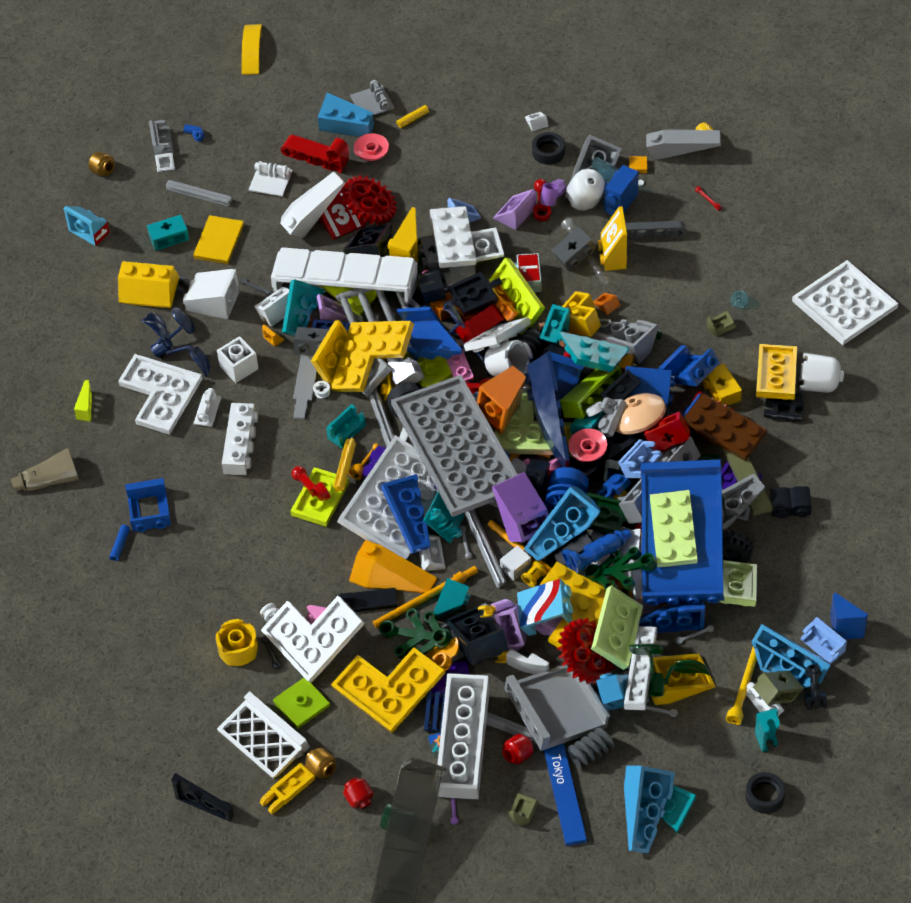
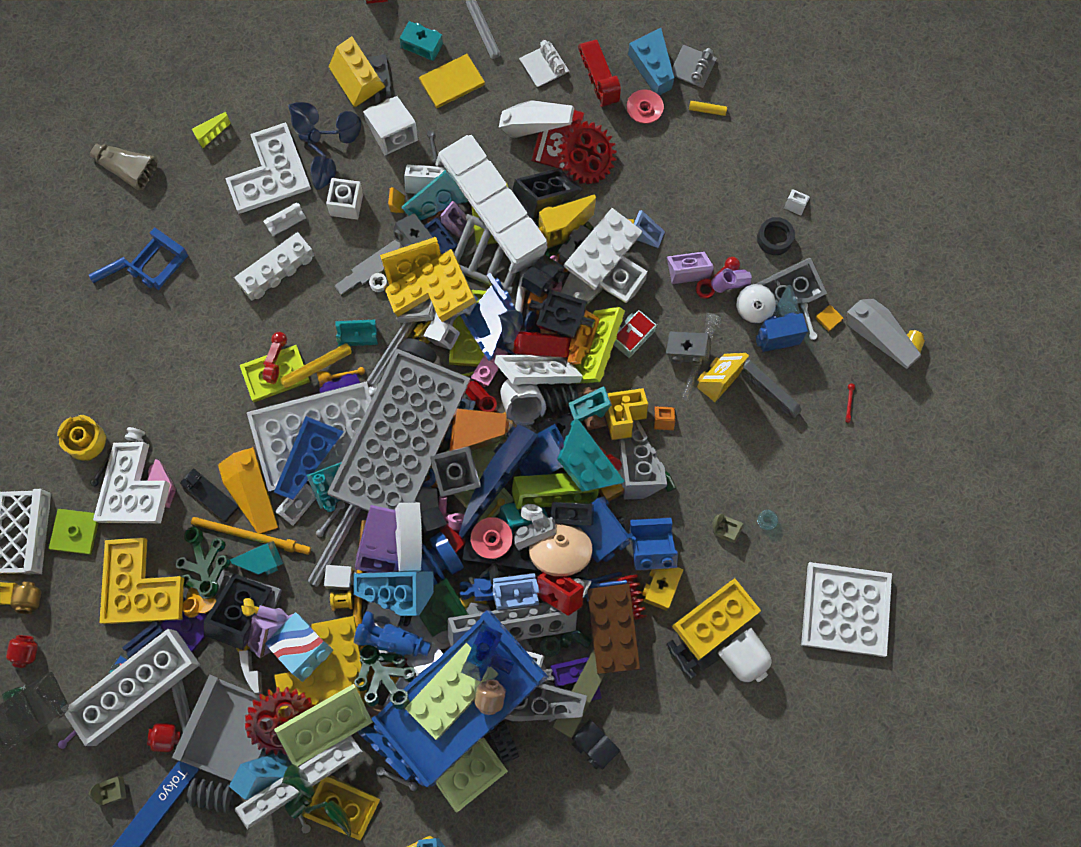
camera: 40 degrees right, 20 degrees up
(521, 424) = (455, 471): none -> flat silver slope
(537, 479) = (409, 537): none -> white slope
(671, 480) = (484, 655): none -> clear blue brick
(701, 502) = (490, 697): none -> medium nougat head

